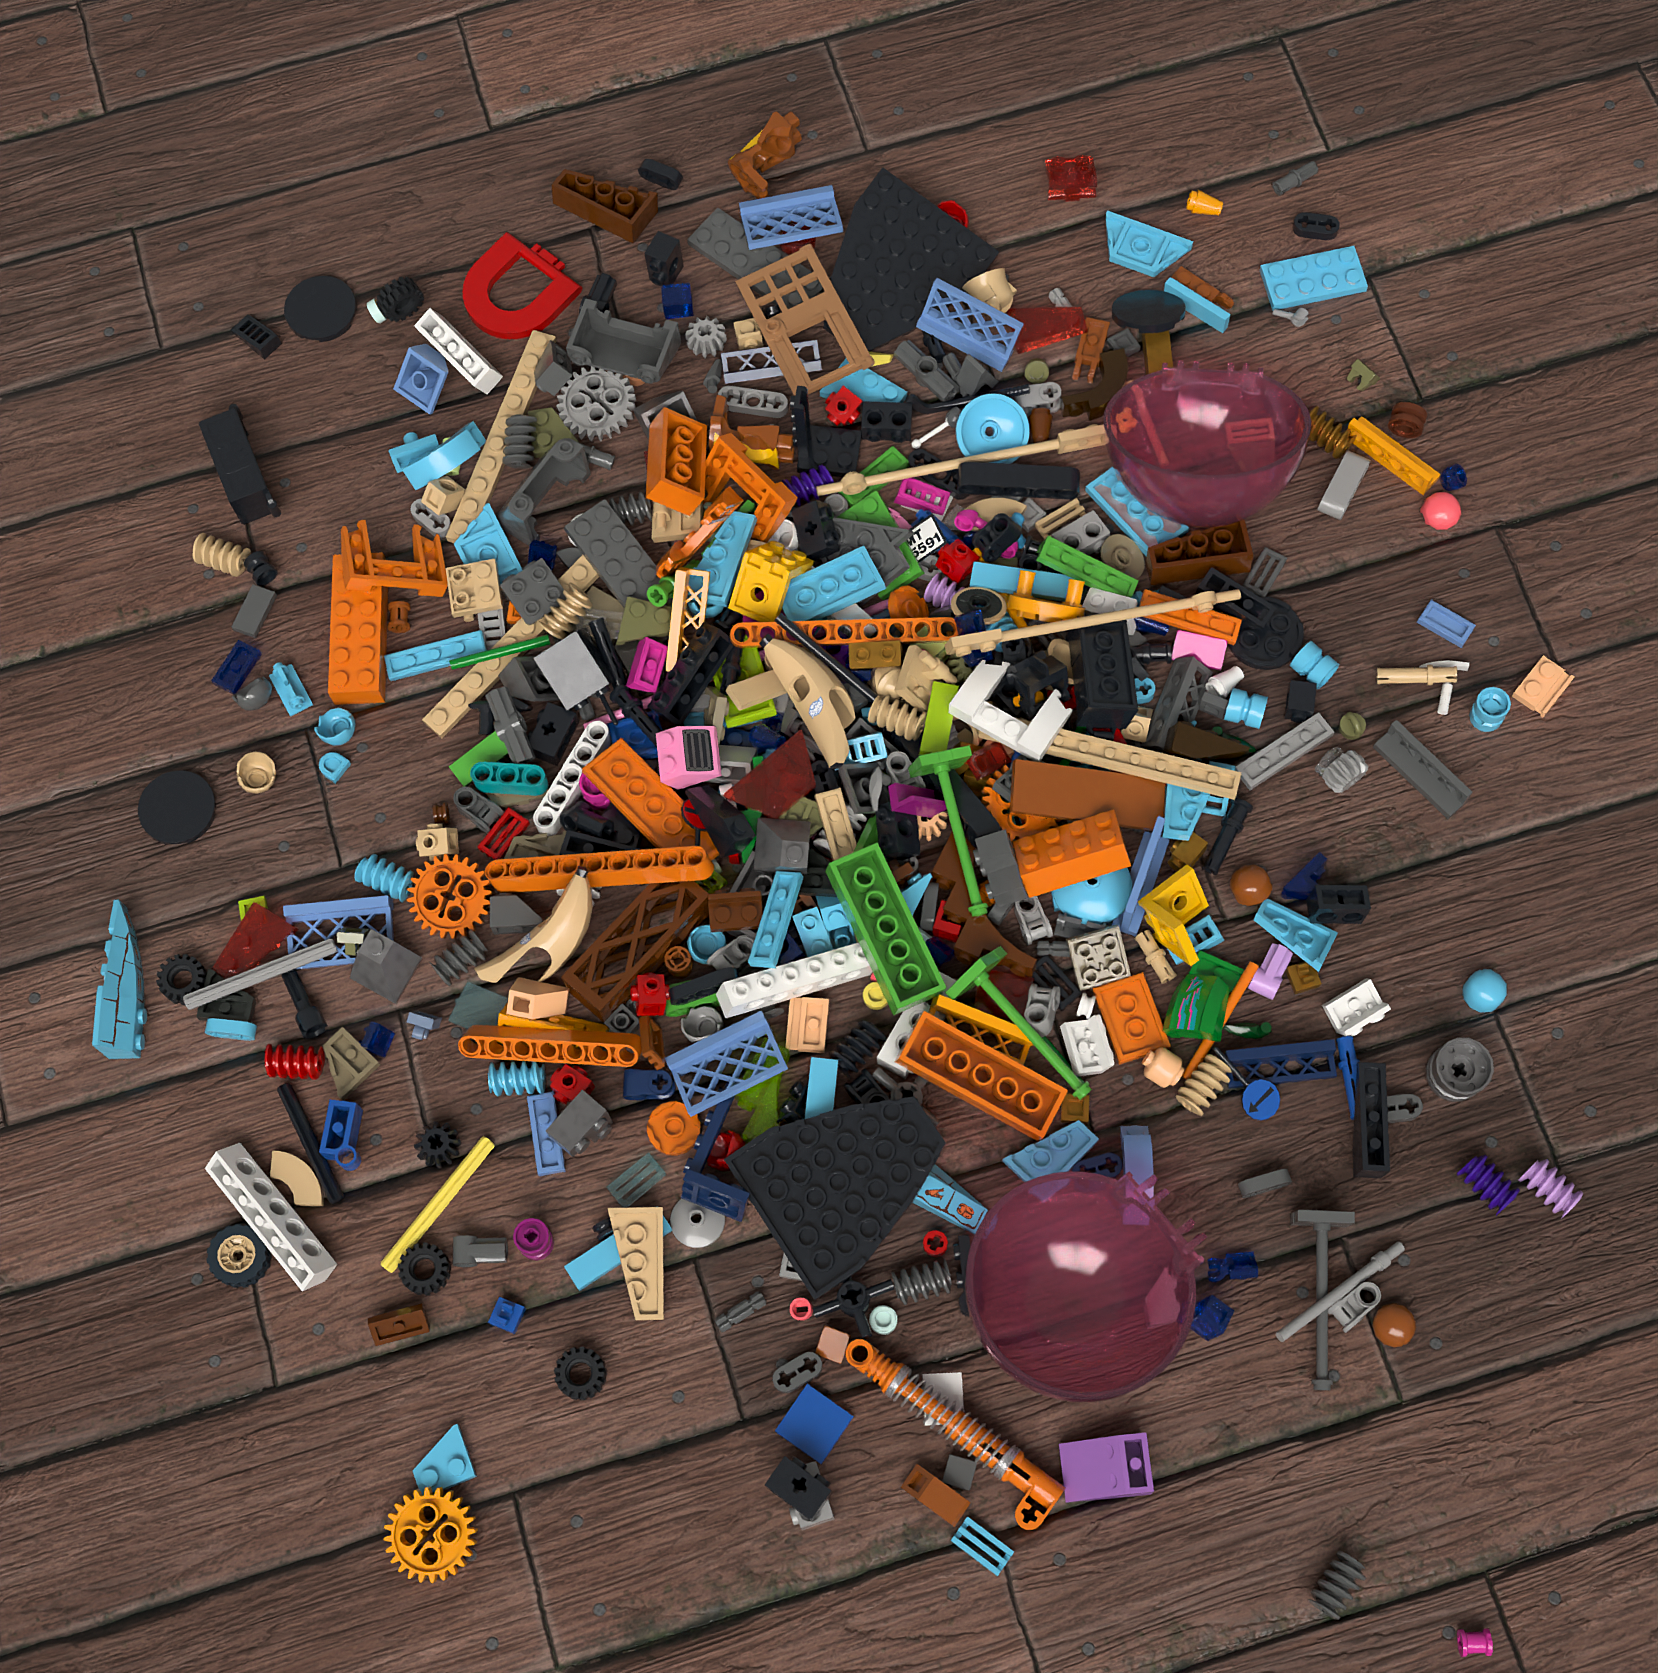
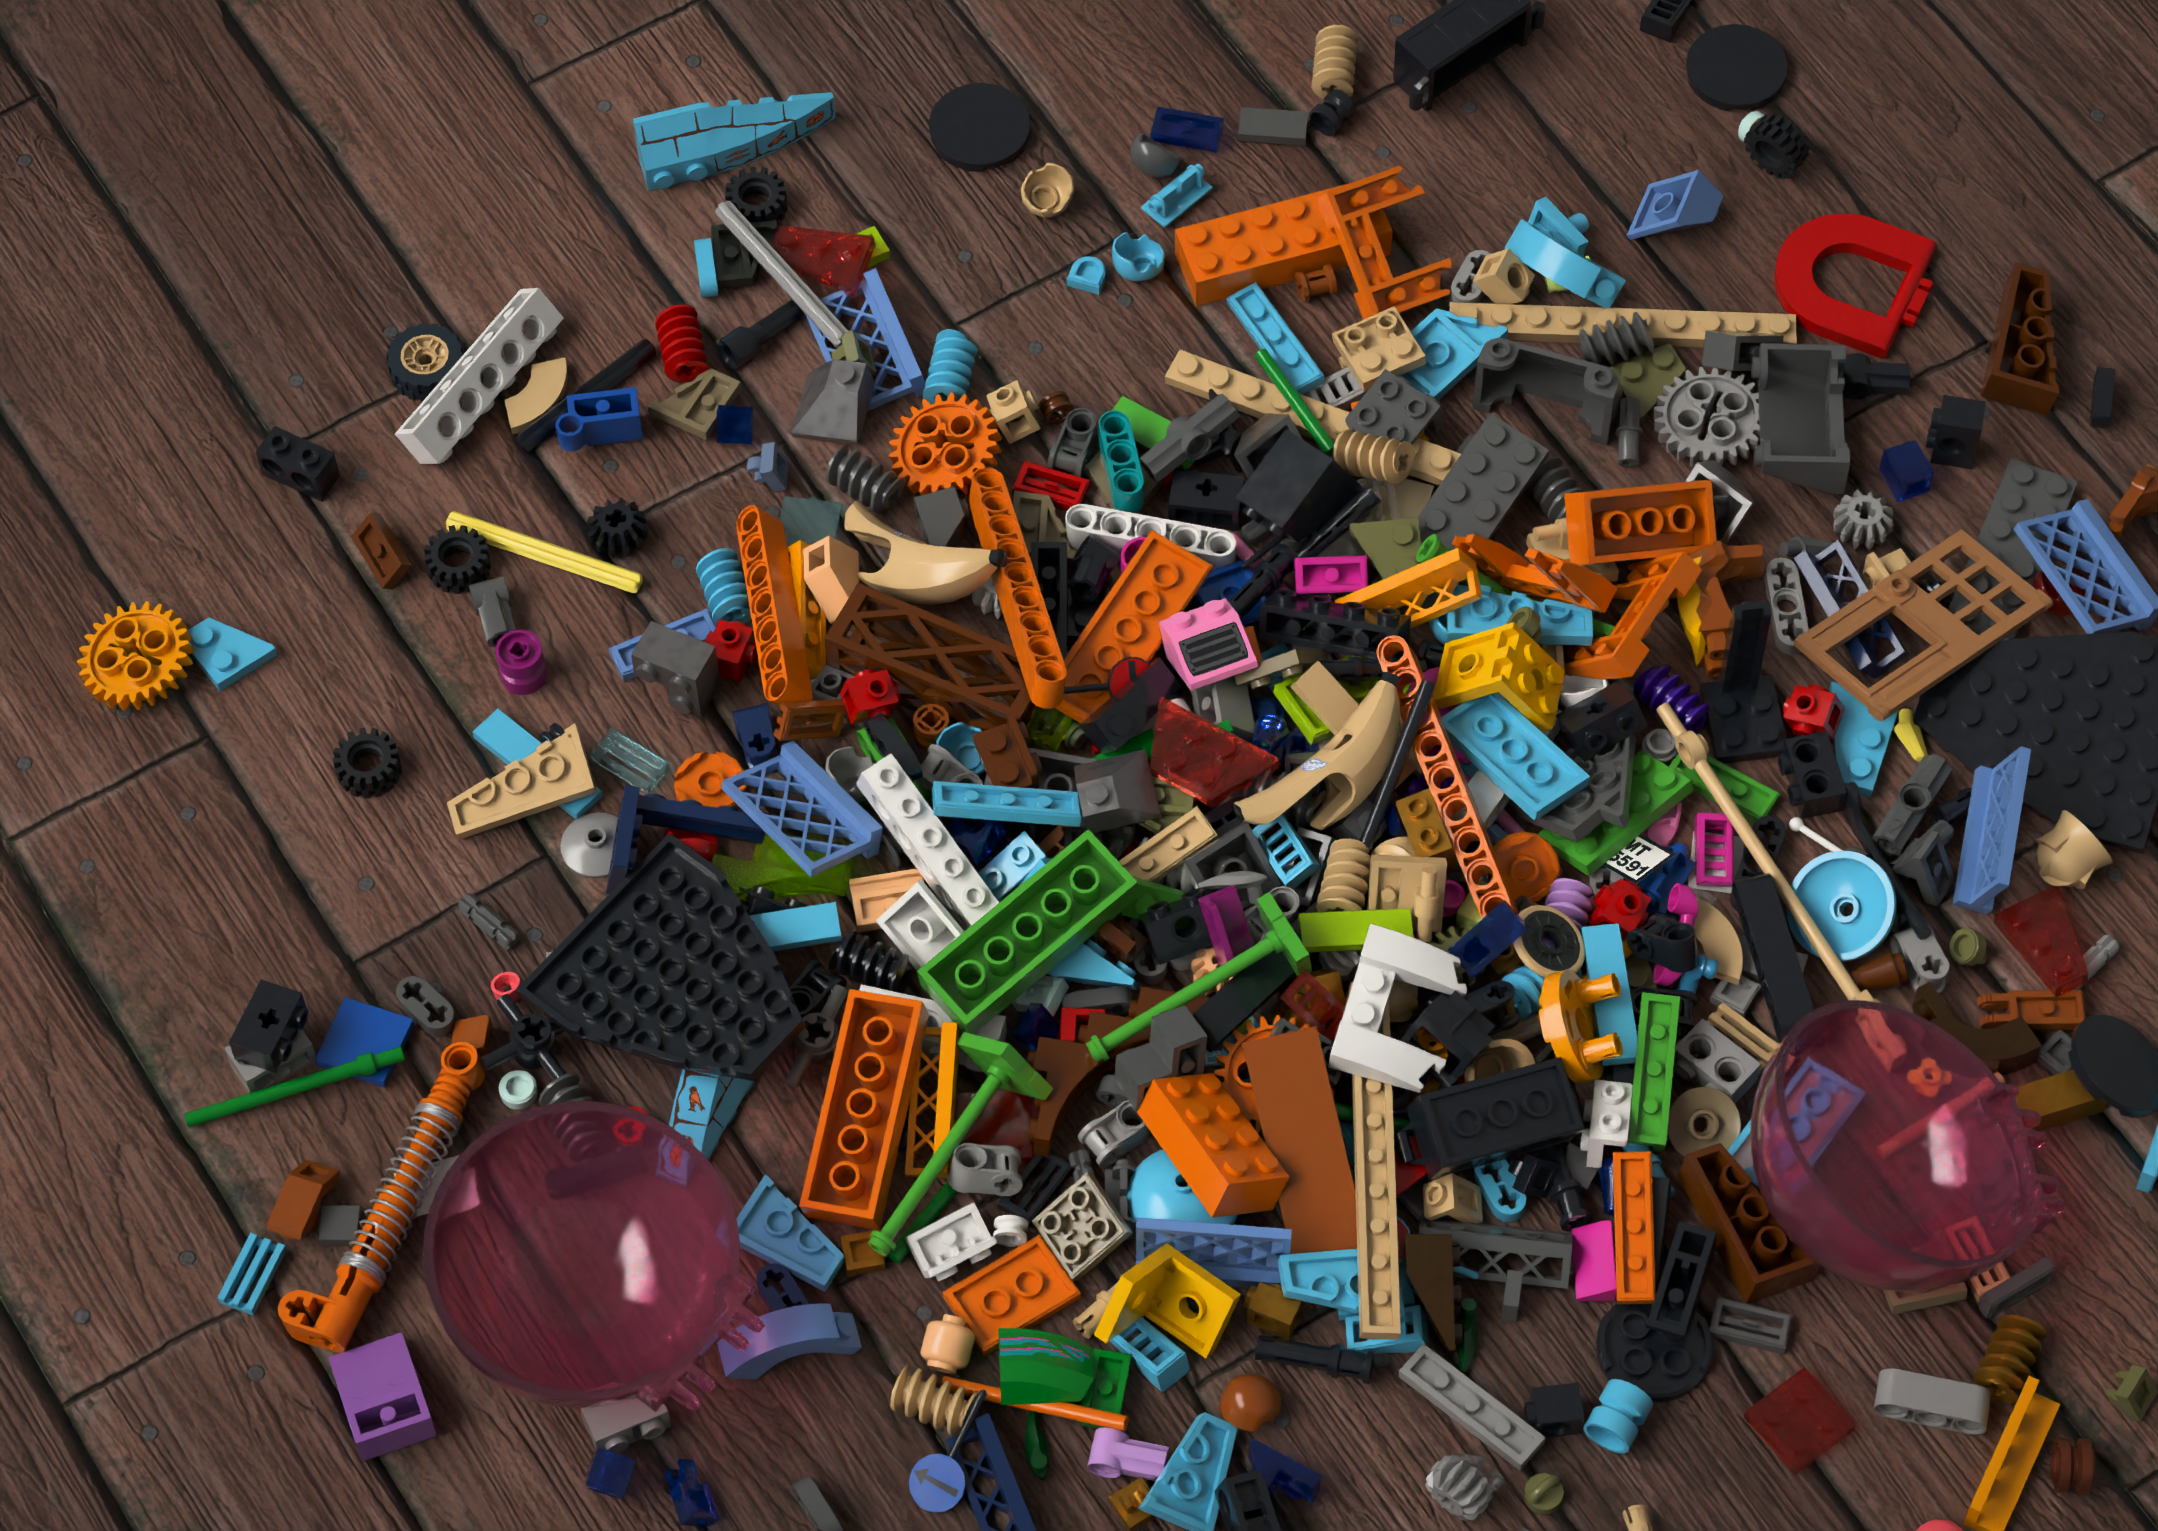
camera: 70 degrees right, 10 degrees down
(298, 1373) = (297, 463): none -> black brick
(458, 351) = (1724, 234): white brick -> none
(507, 1315) = (422, 666): blue tile -> none
(542, 550) = (1460, 417): clear blue tile -> none
(736, 549) = (1528, 621): none -> olive tile
(839, 1425) = (366, 1064): none -> green bar
(842, 1004) = (919, 925): none -> white slope
(988, 640) = (1471, 938): tan bar -> none
(1223, 682) = (1553, 1304): white cone -> none
(1246, 708) = (1518, 1336): medium azure wheel -> none
(1336, 564) = (1799, 1421): none -> clear red plate

